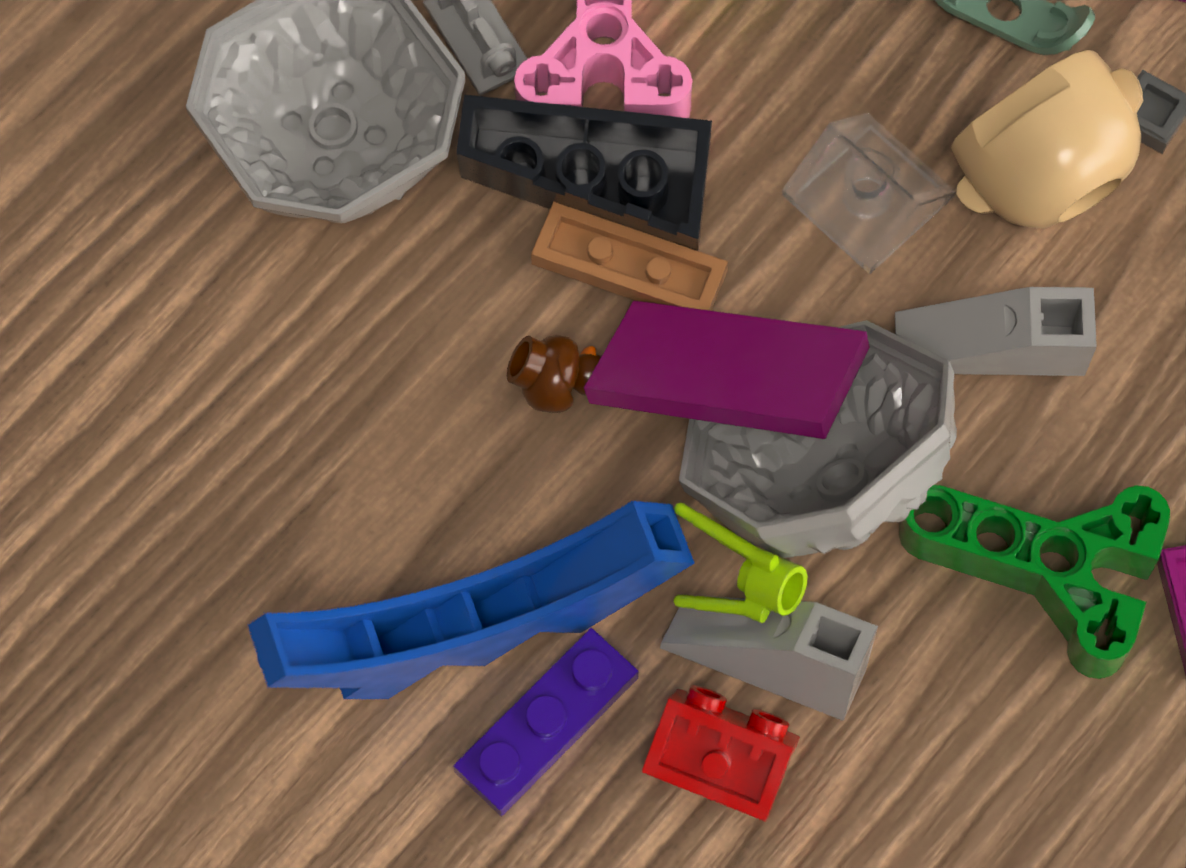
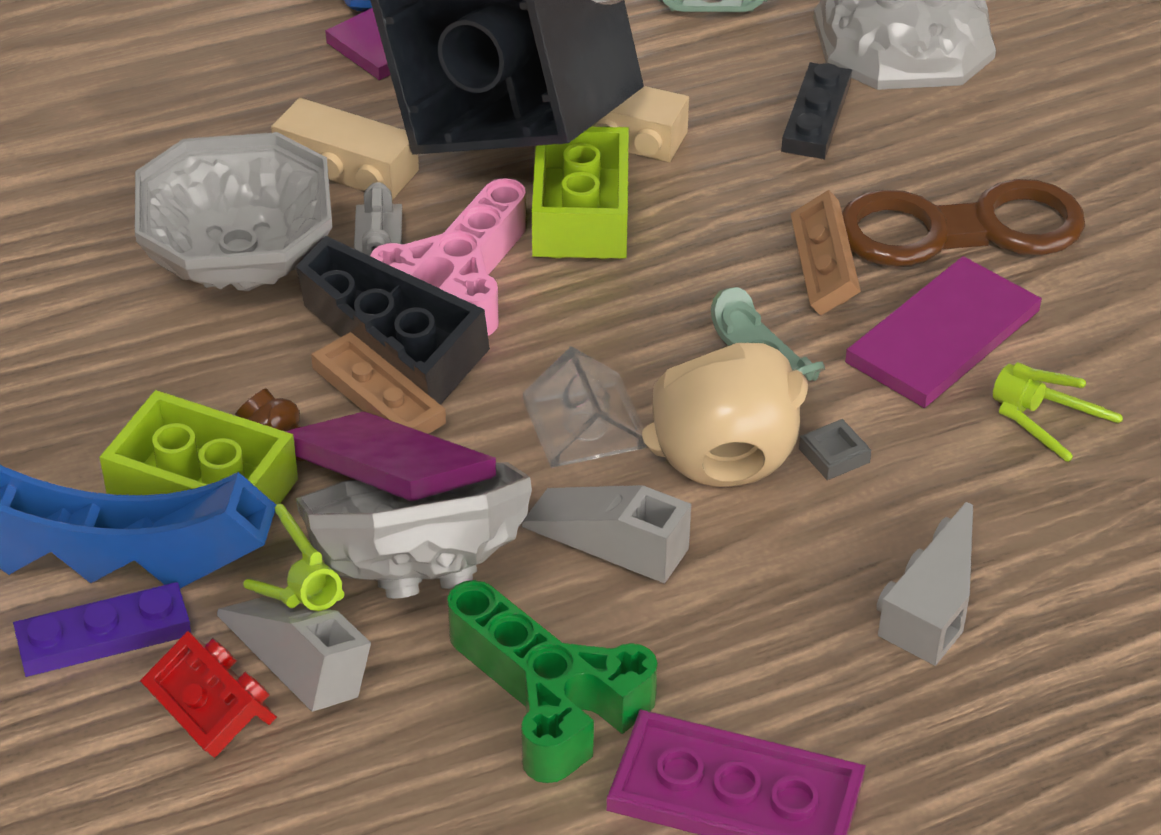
camera: 25 degrees right, 25 degrees down
(521, 472) = (187, 445): none -> lime brick

